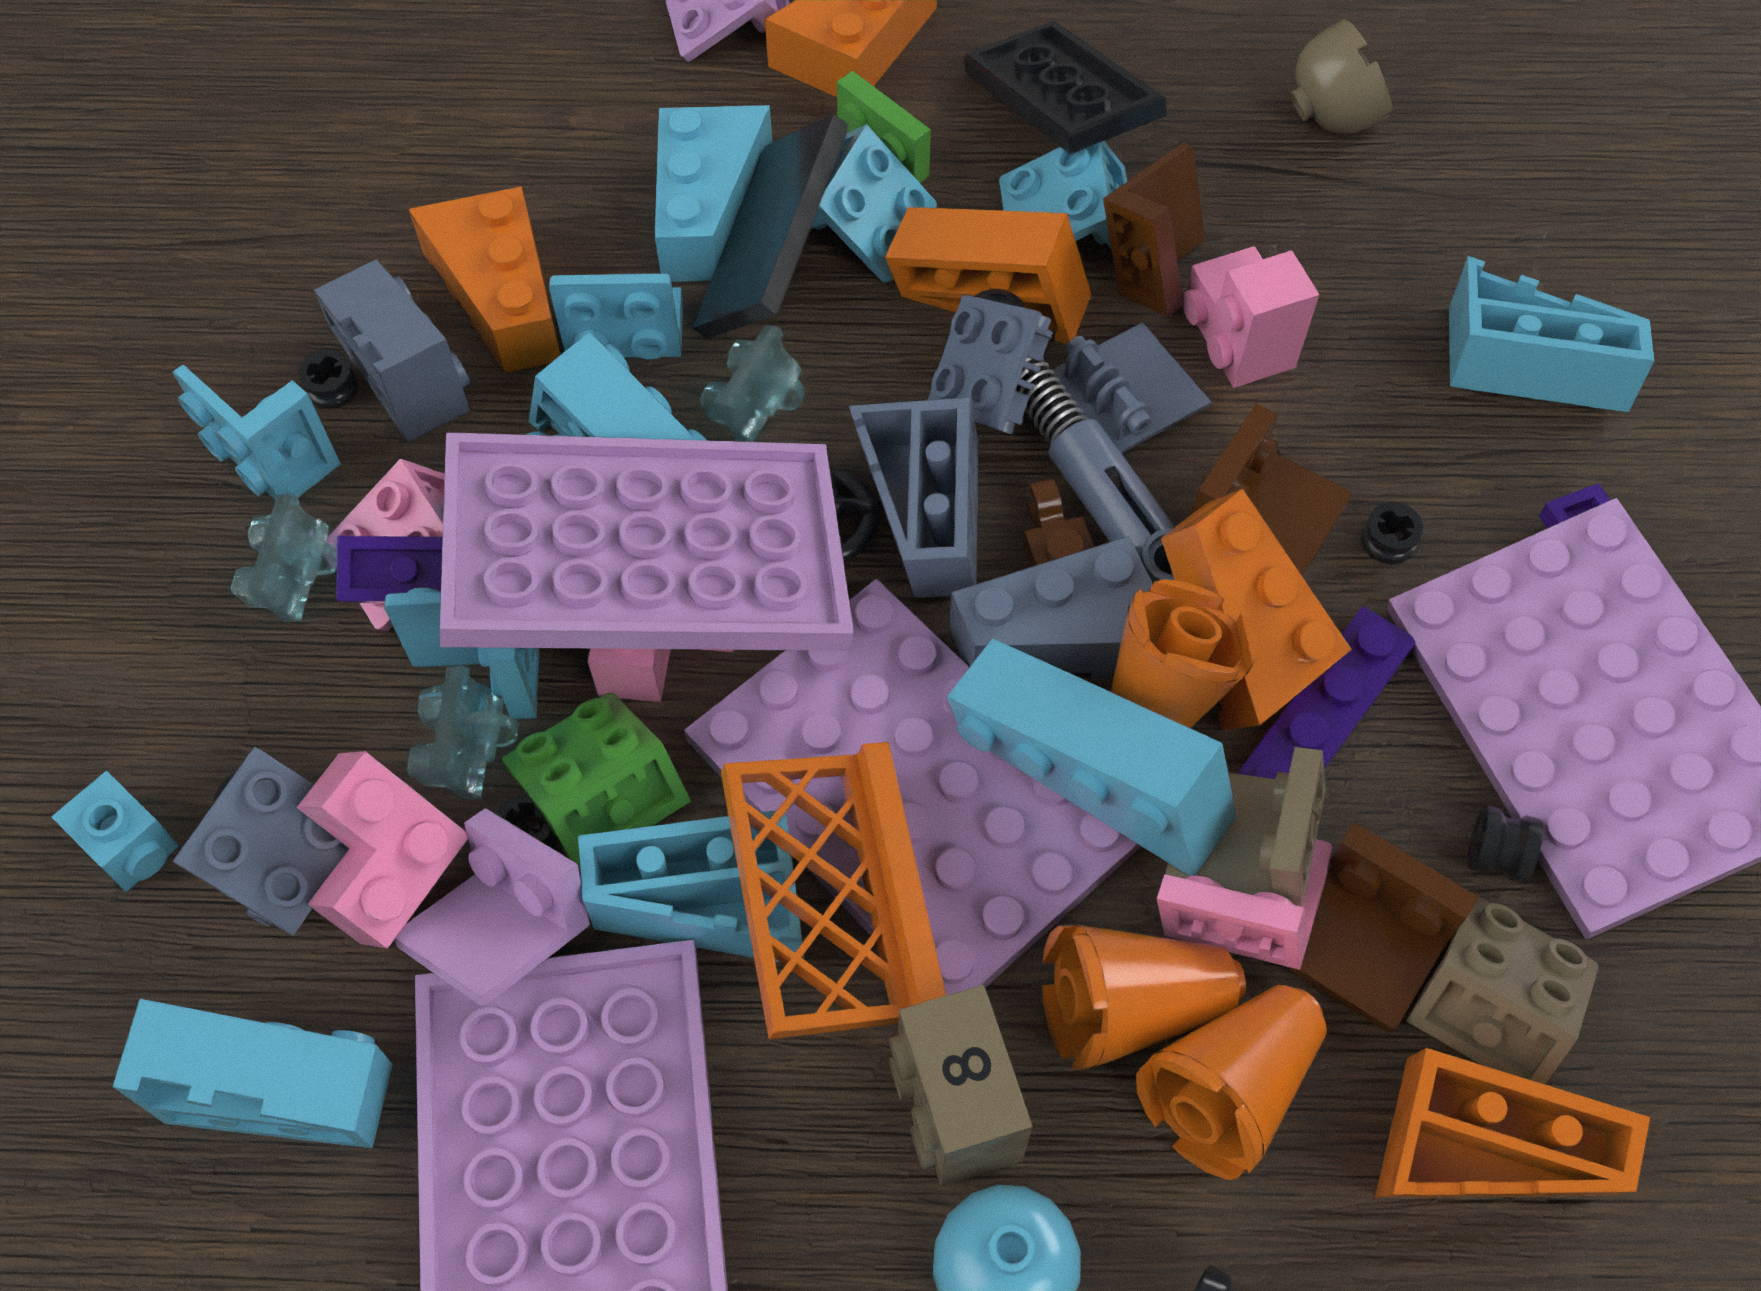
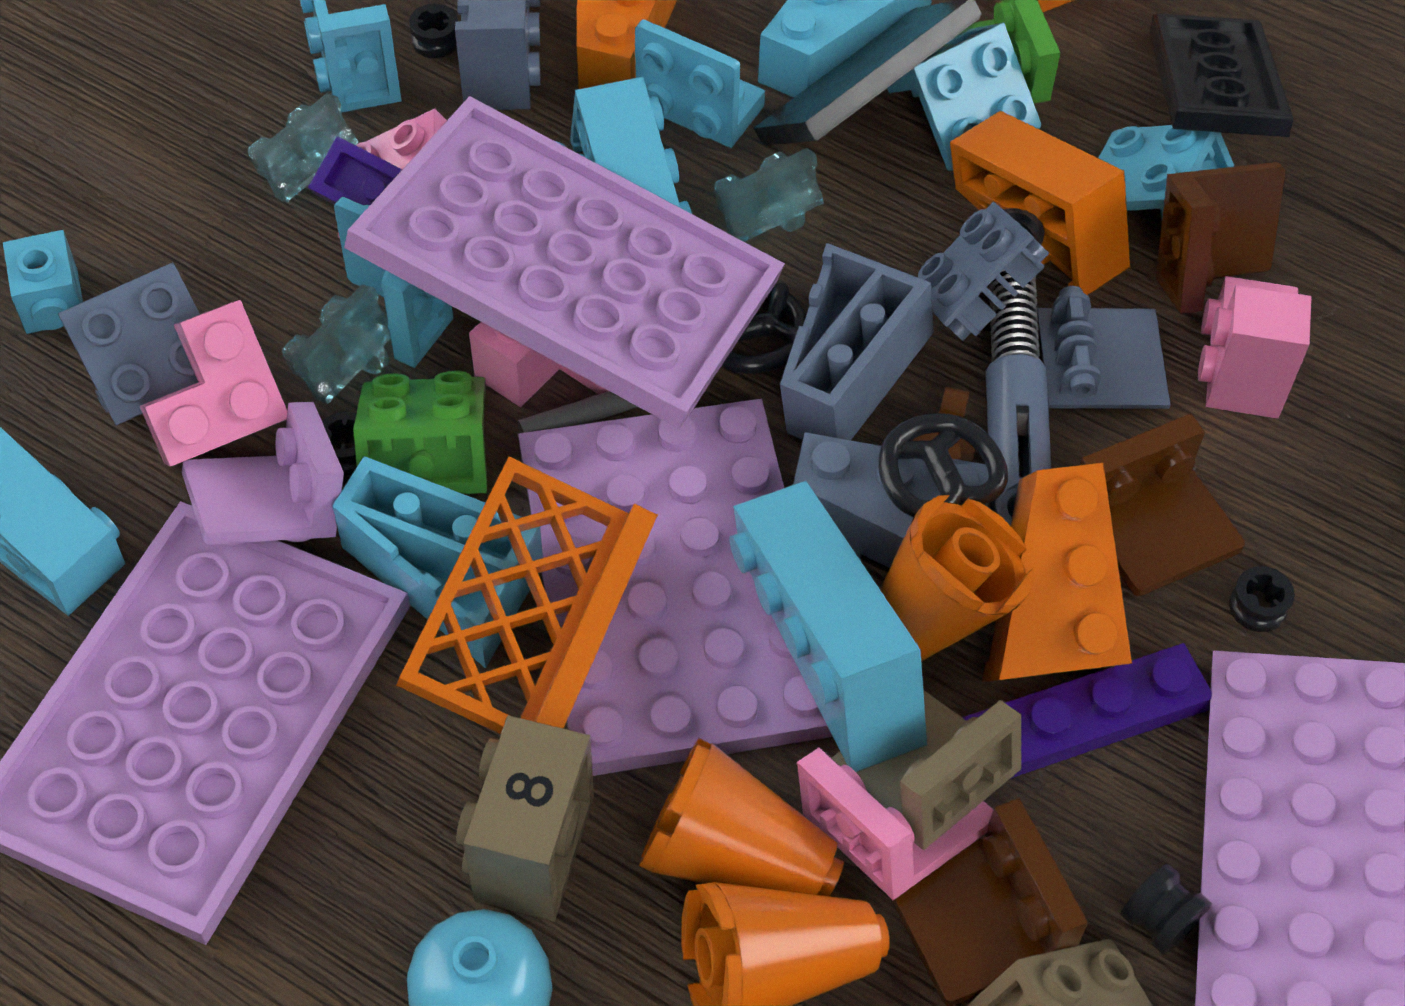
camera: 30 degrees right, 5 degrees down
(715, 686) = (577, 413): none -> dark grey piece
(1094, 561) = (938, 460): none -> black piece

